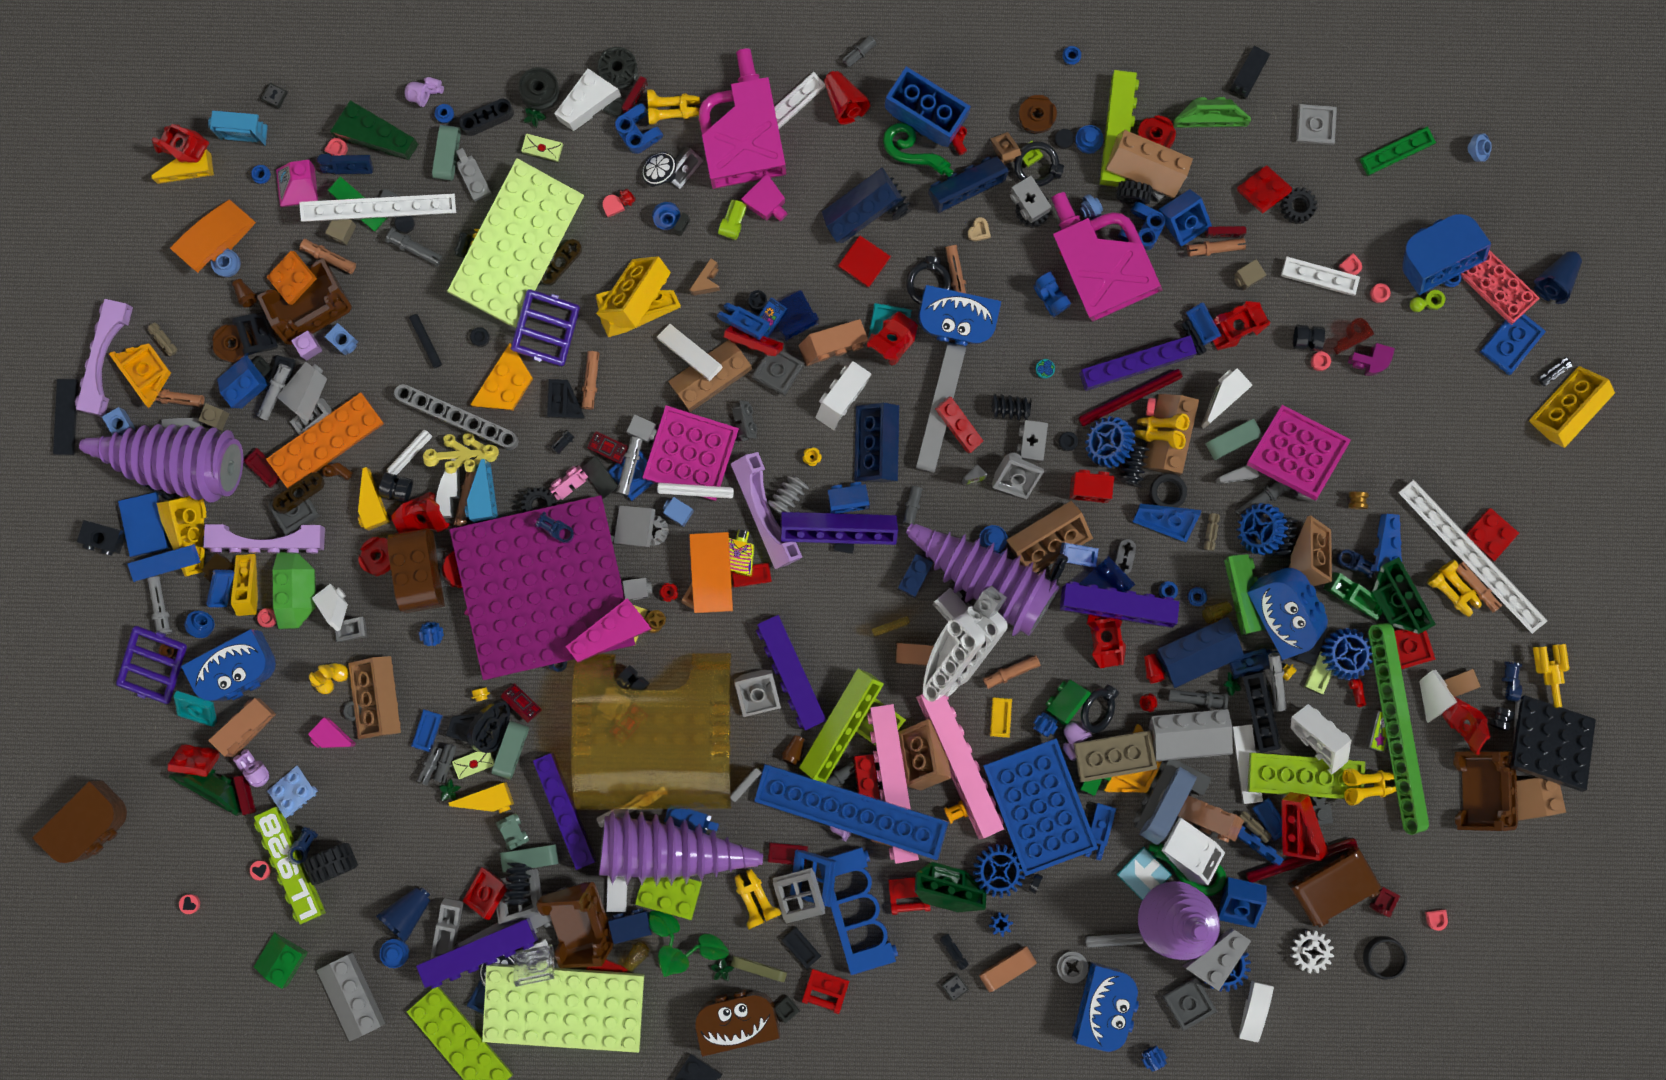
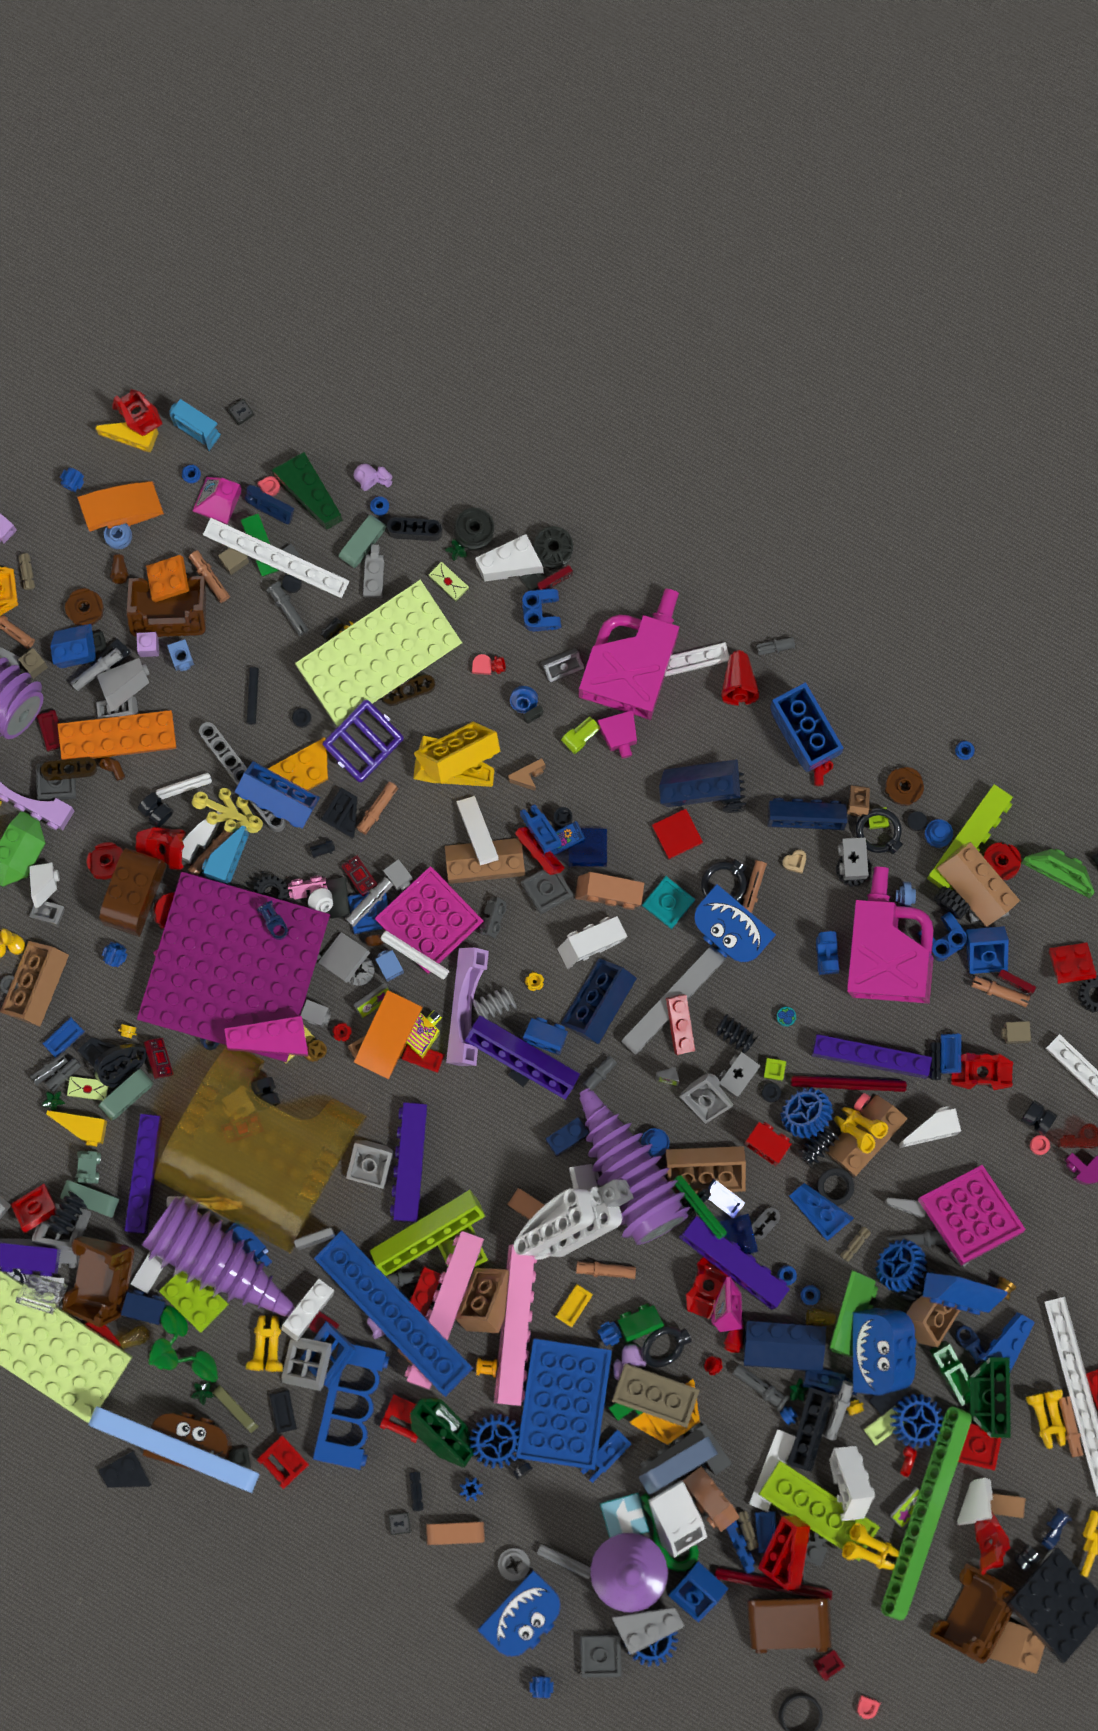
camera: 30 degrees right, 5 degrees down
(156, 235) = (72, 479): none -> blue gear
(260, 330) = (114, 613): black plate -> none
(370, 506) = (125, 813): yellow slope -> none
(496, 416) = (277, 795): none -> blue slope
(586, 487) = (320, 900): none -> white cone
(652, 497) = (374, 940): none -> reddish brown tile
(659, 169) = (540, 655): dish -> none
(680, 551) = (371, 1001): none -> slope
(683, 112) = (594, 606): yellow piece -> none
(726, 1036) = (174, 1449): none -> light blue beam
(774, 849) = (307, 1309): none -> white arch
(793, 750) = (373, 1232): reddish brown cone -> none
(890, 626) = (520, 1170): clear yellow tile -> none
(903, 329) = (677, 913): red piece -> none
(935, 161) = (787, 777): green plant -> none
(1060, 419) = (774, 1069): none -> lime plate
(1065, 574) = (700, 1208): none -> green axle
(1135, 647) = (728, 1307): none -> dark pink slope
(1191, 735) = (735, 1415): light grey slope -> none
(1234, 439) = (921, 1172): sand green beam -> none
(1236, 709) = (789, 1415): none -> blue plate
(1255, 1011) = (656, 1697): white slope -> none
(1312, 958) = (743, 1664): white gear -> none
(1329, 525) = (962, 1293): none -> blue slope

